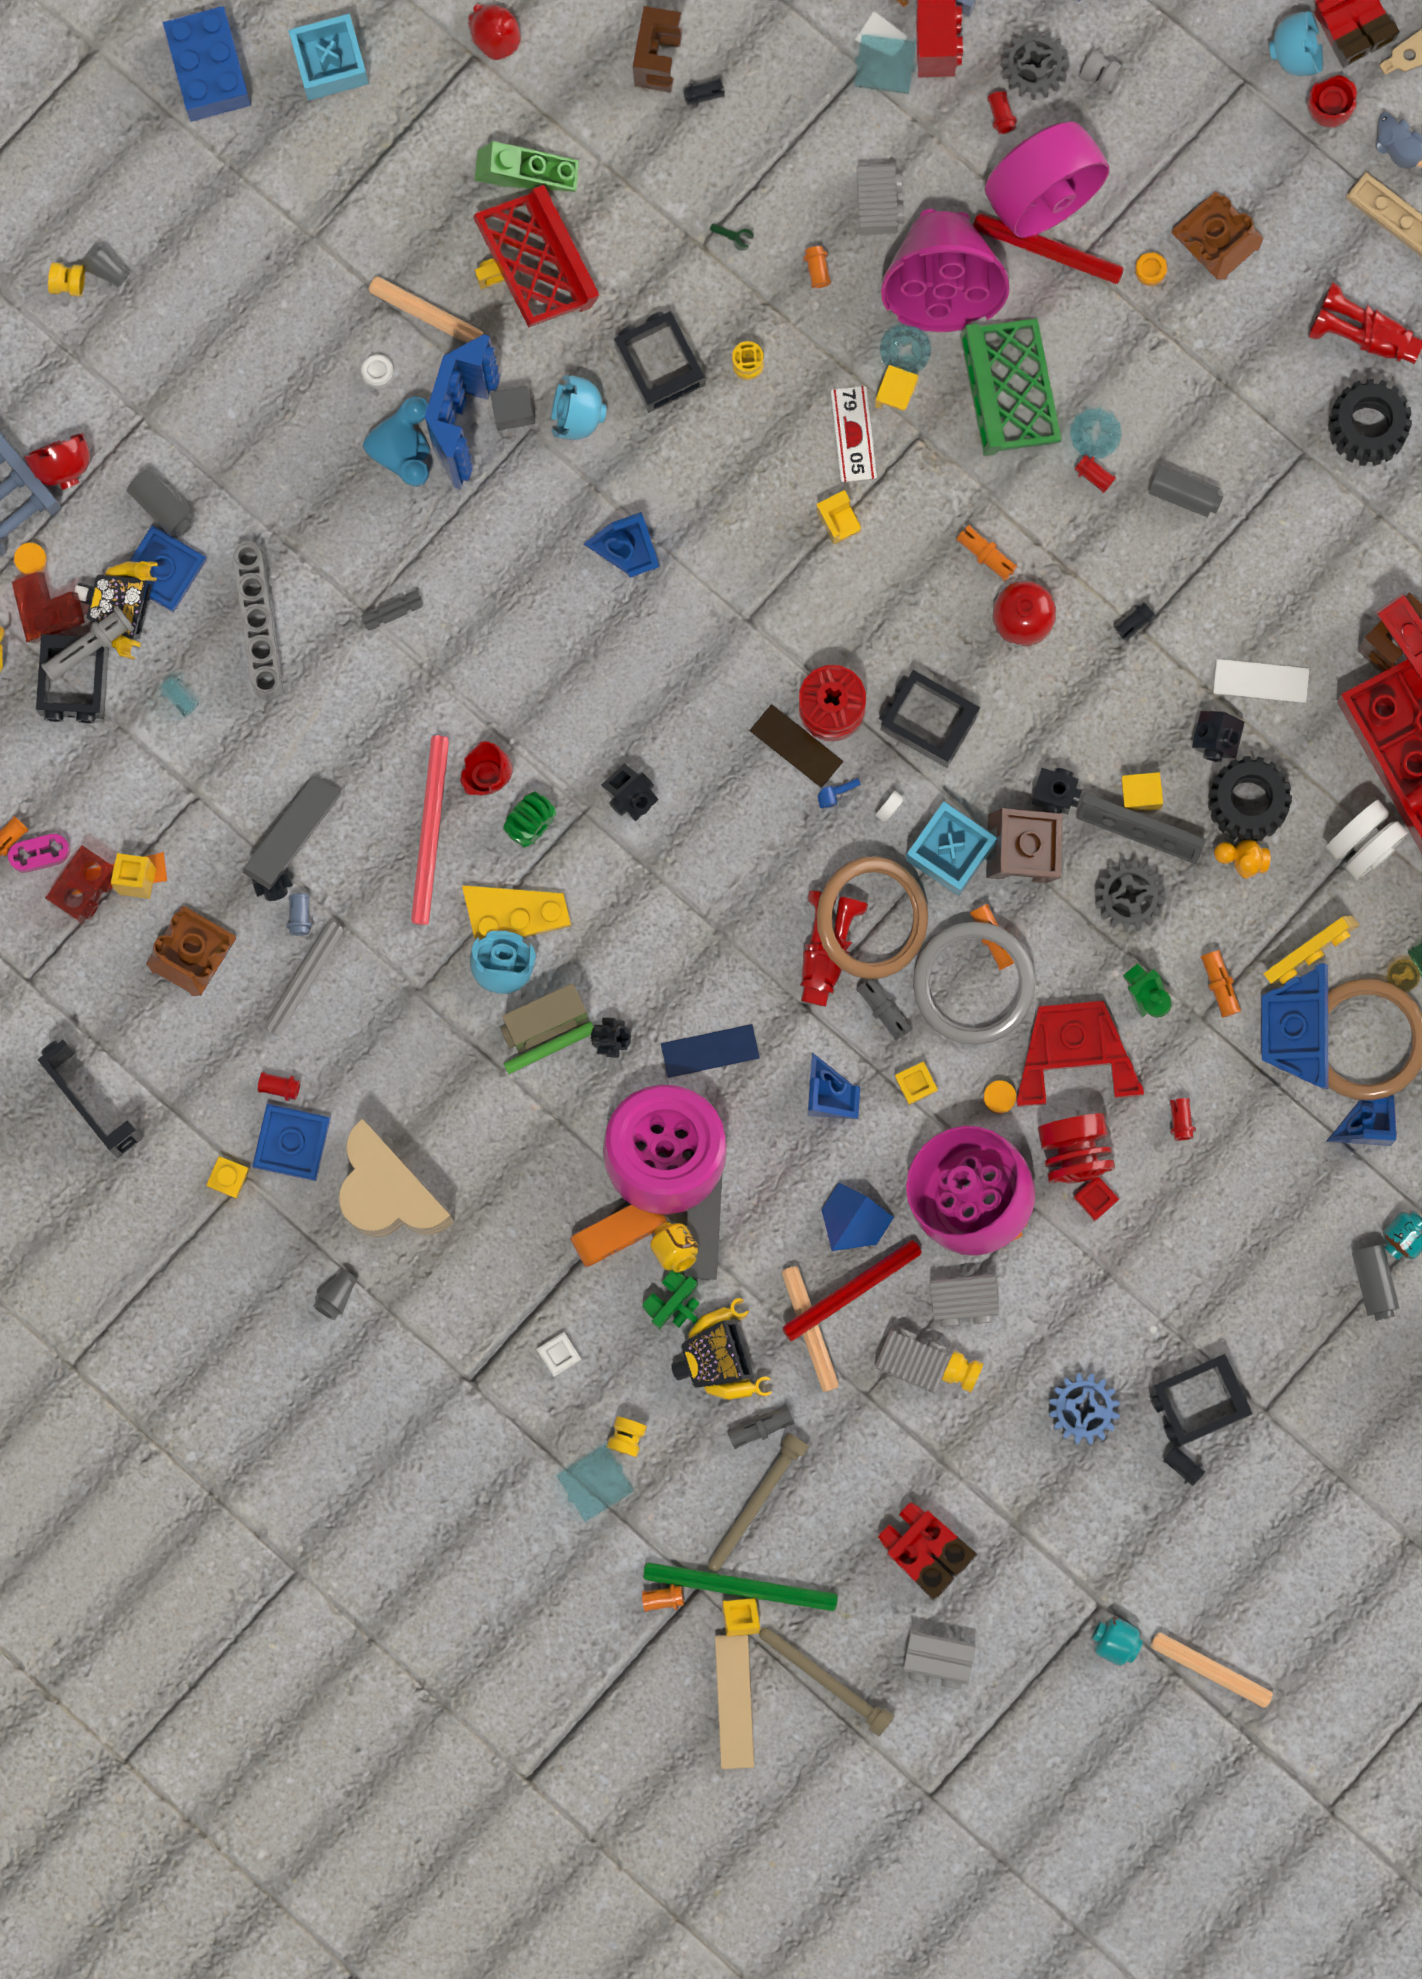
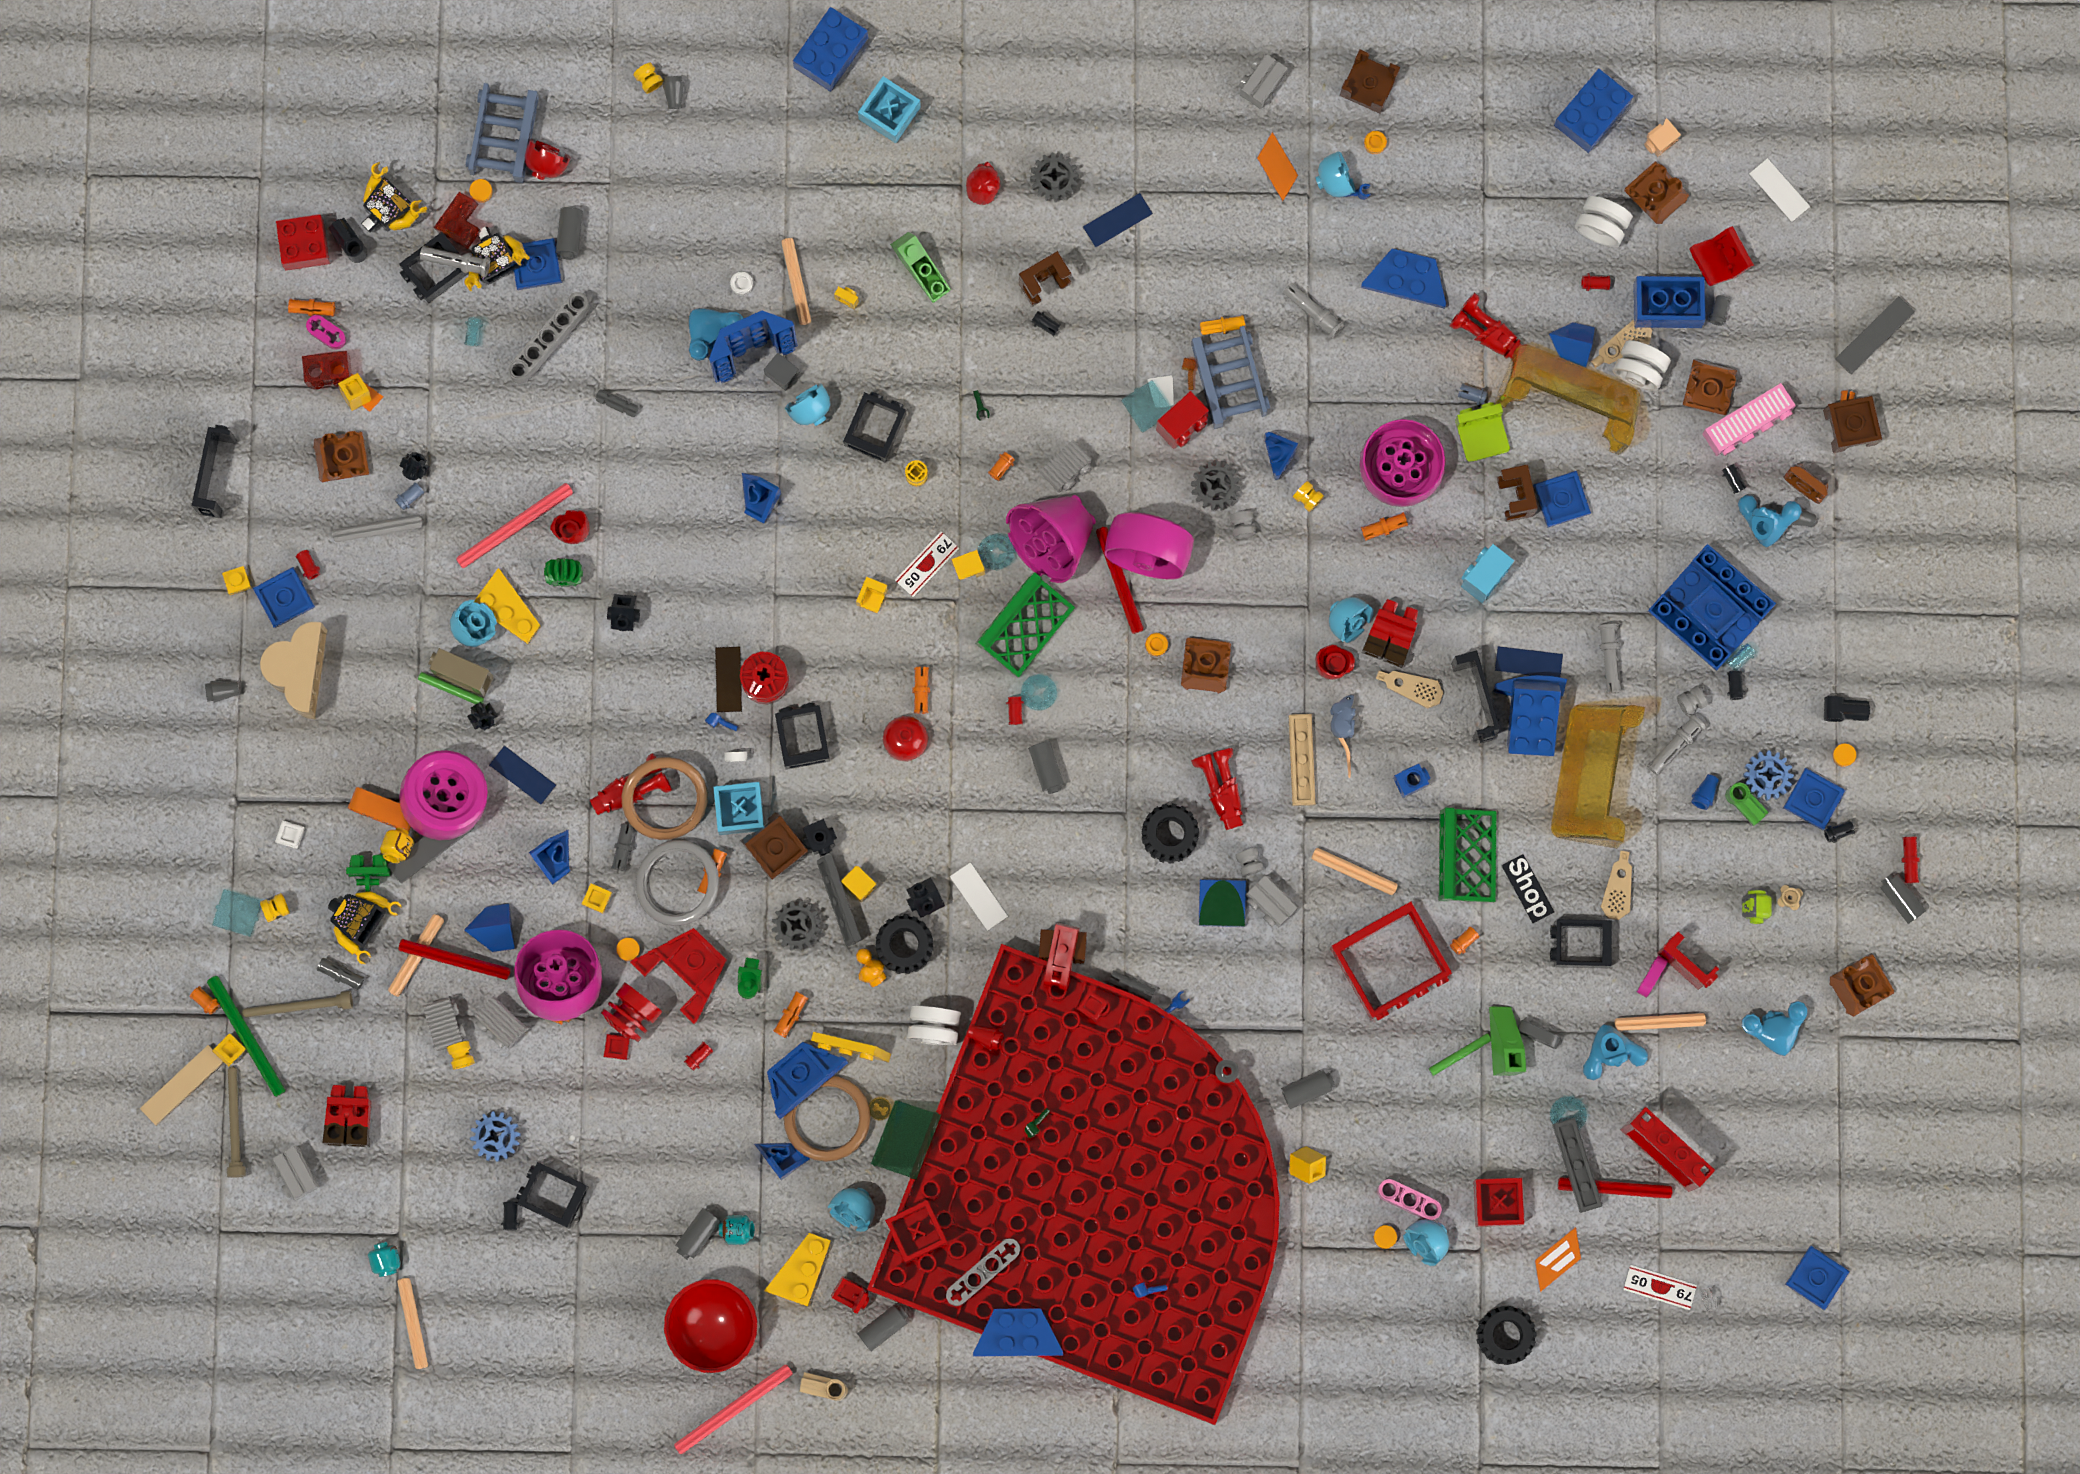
camera: 40 degrees right, 0 degrees up
(291, 832) = (448, 453): dark grey tile -> none
(561, 250) = (892, 318): red fence -> none
(1004, 121) = (1173, 491): red pin -> none
(1134, 621) = (951, 800): black pin -> none

